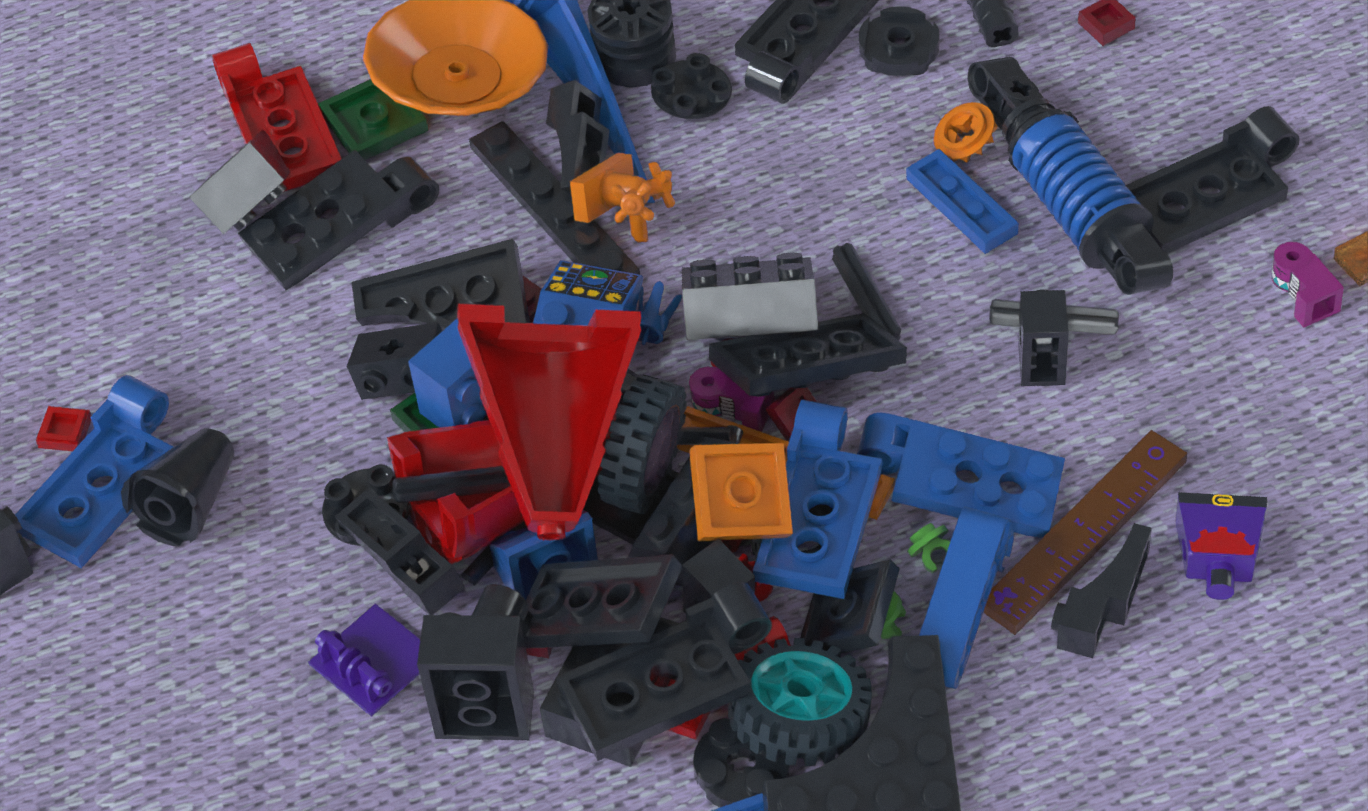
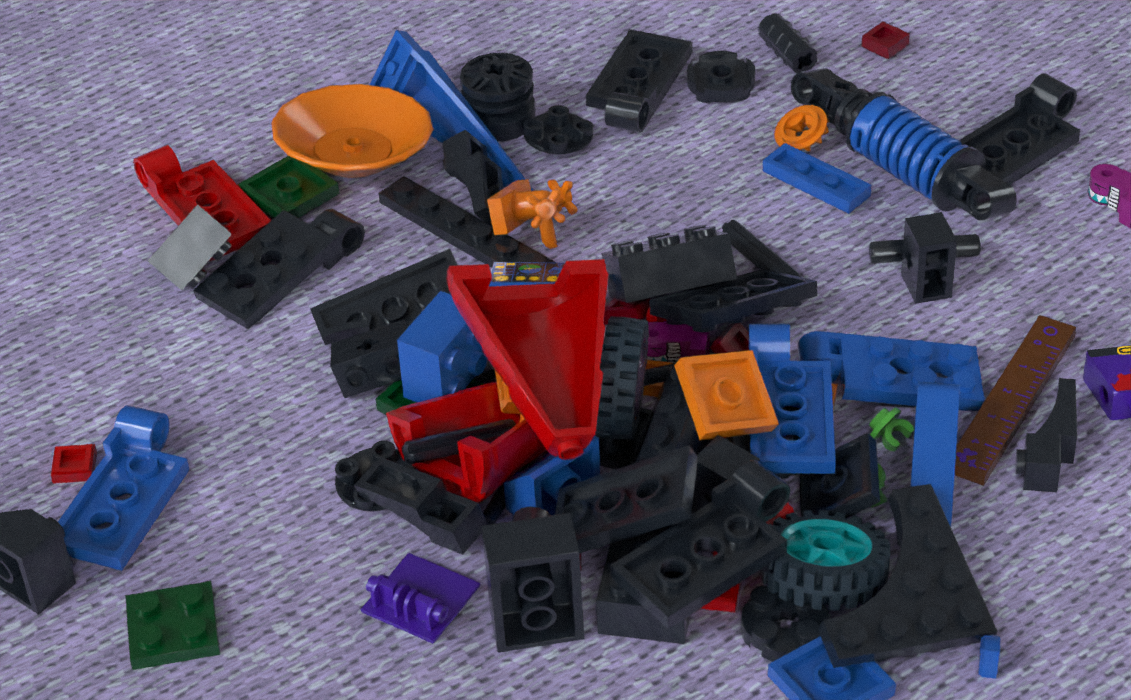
camera: 15 degrees left, 10 degrees down
(115, 643) = (172, 625): none -> dark green plate
(179, 487) = (199, 489): black cone -> none
(688, 350) = (634, 309): none -> dark red plate

